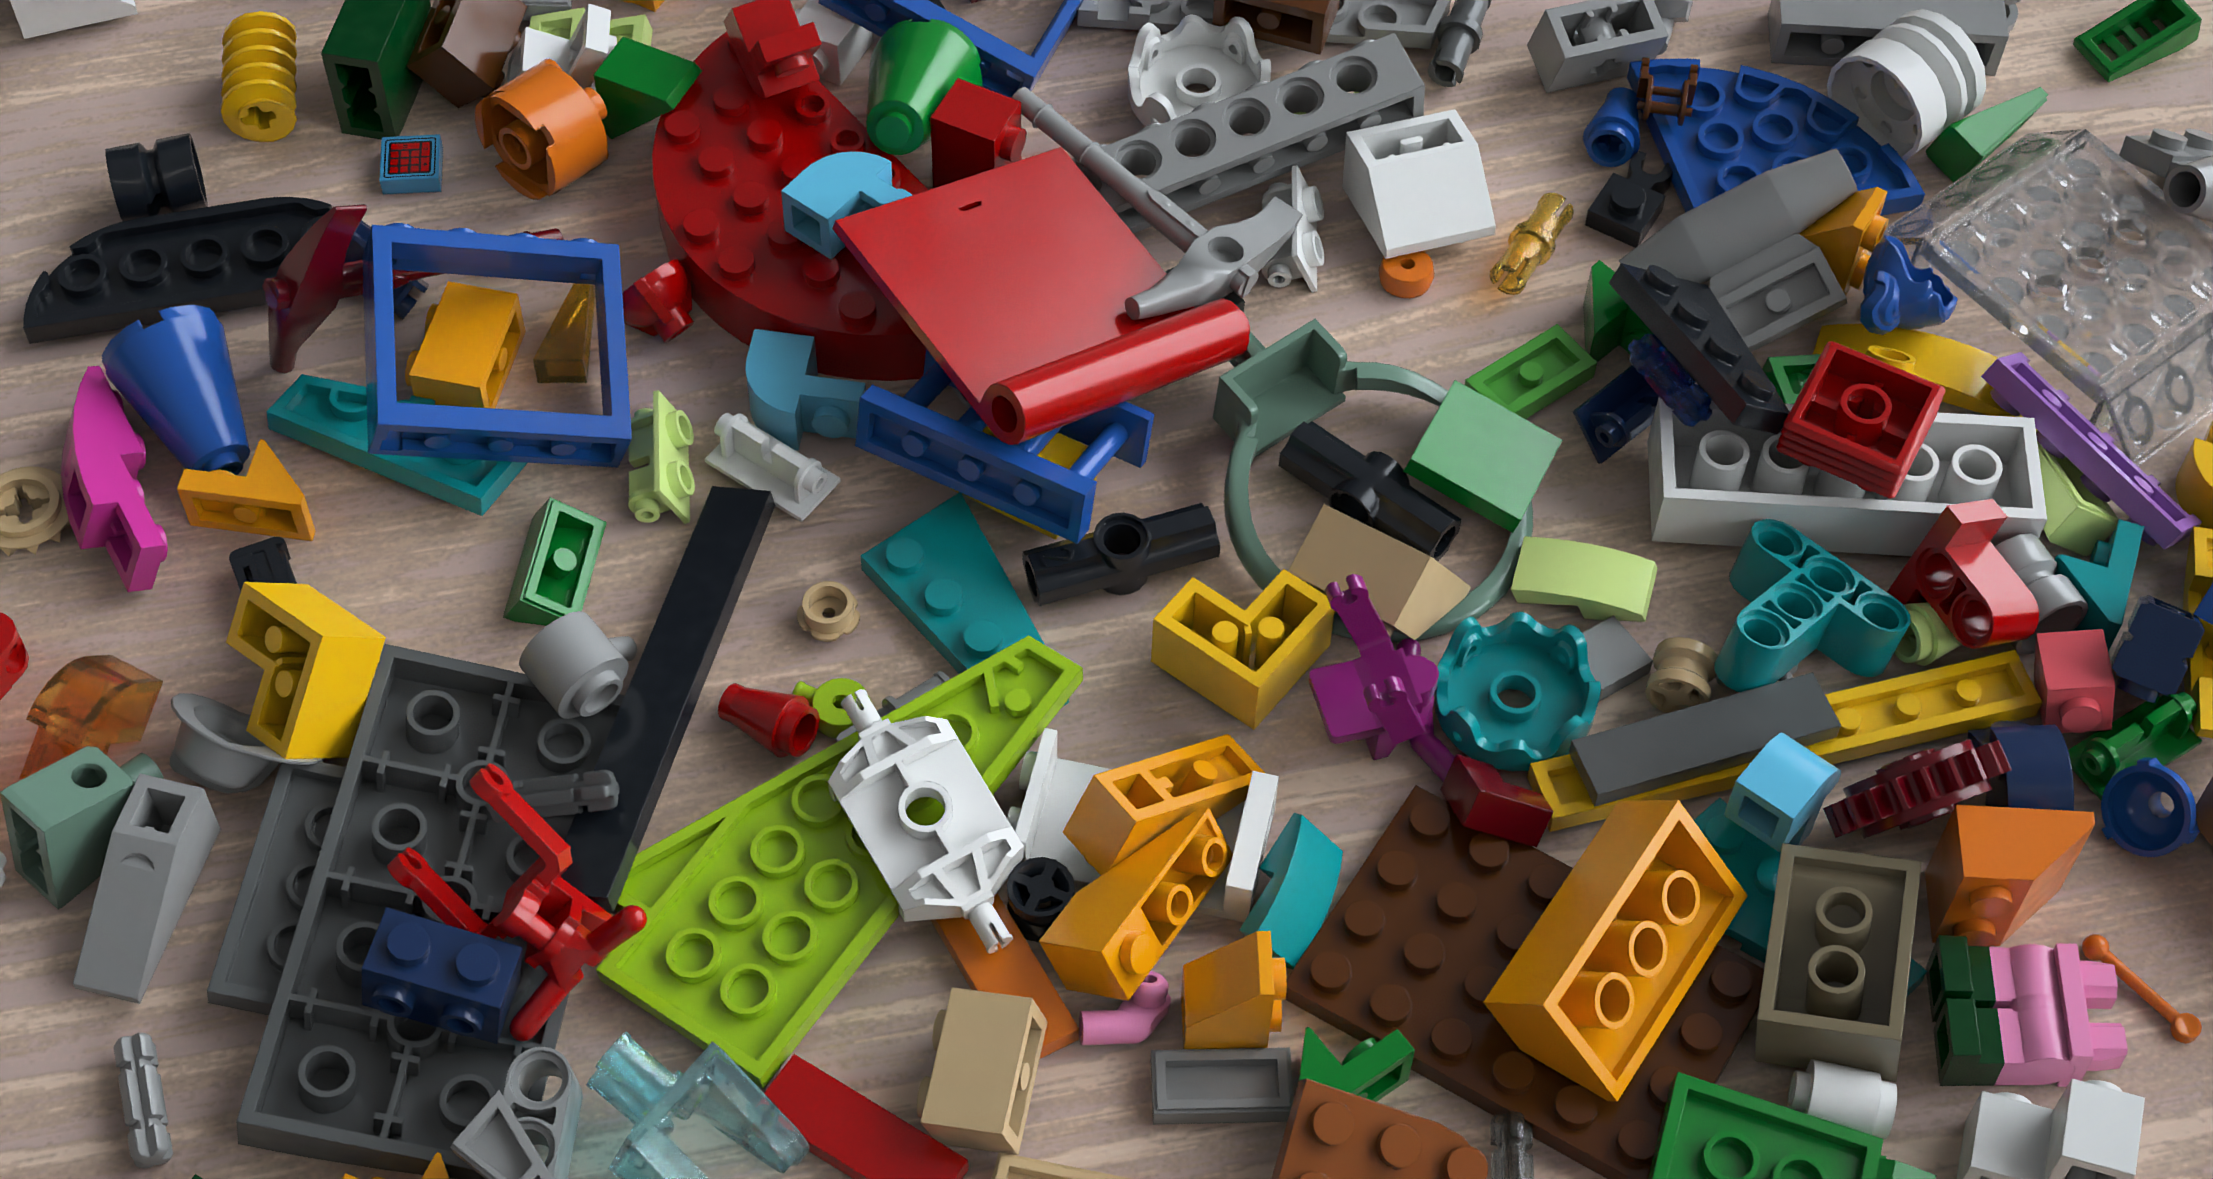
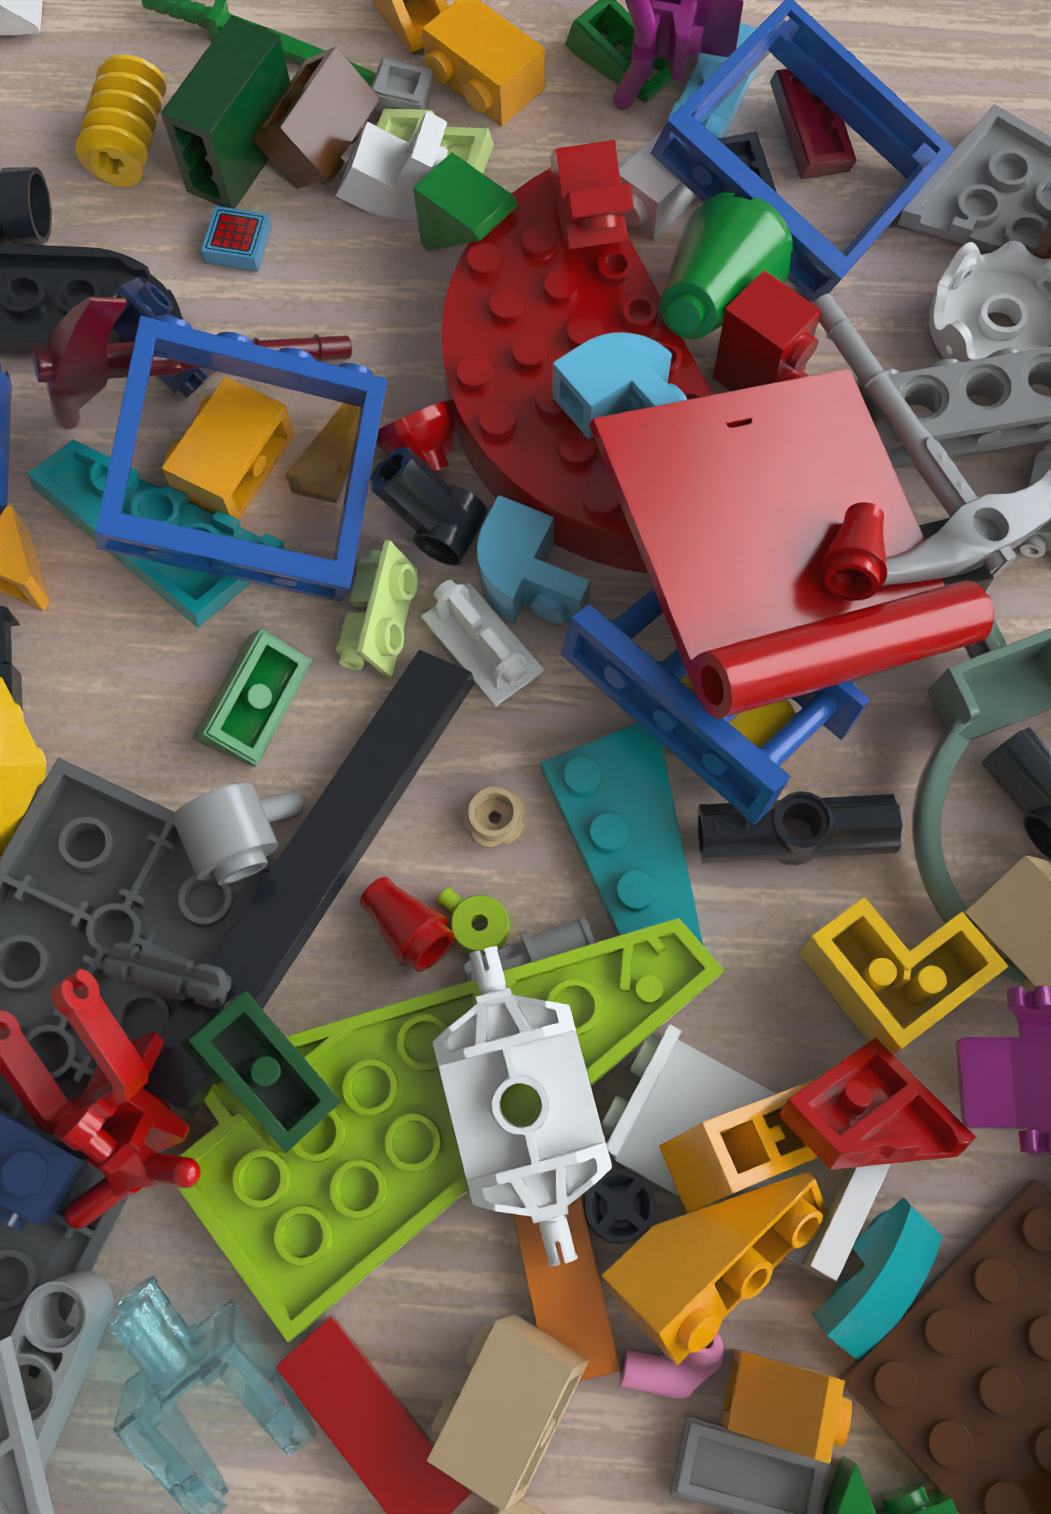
camera: 20 degrees right, 15 degrees up
(543, 130) = (358, 232): orange brick -> none
(673, 834) = (260, 1072): none -> dark green brick
(700, 360) = (440, 513): none -> black piece
(1108, 295) = (857, 556): none -> red cone
(1247, 749) = (873, 1114): none -> red wing

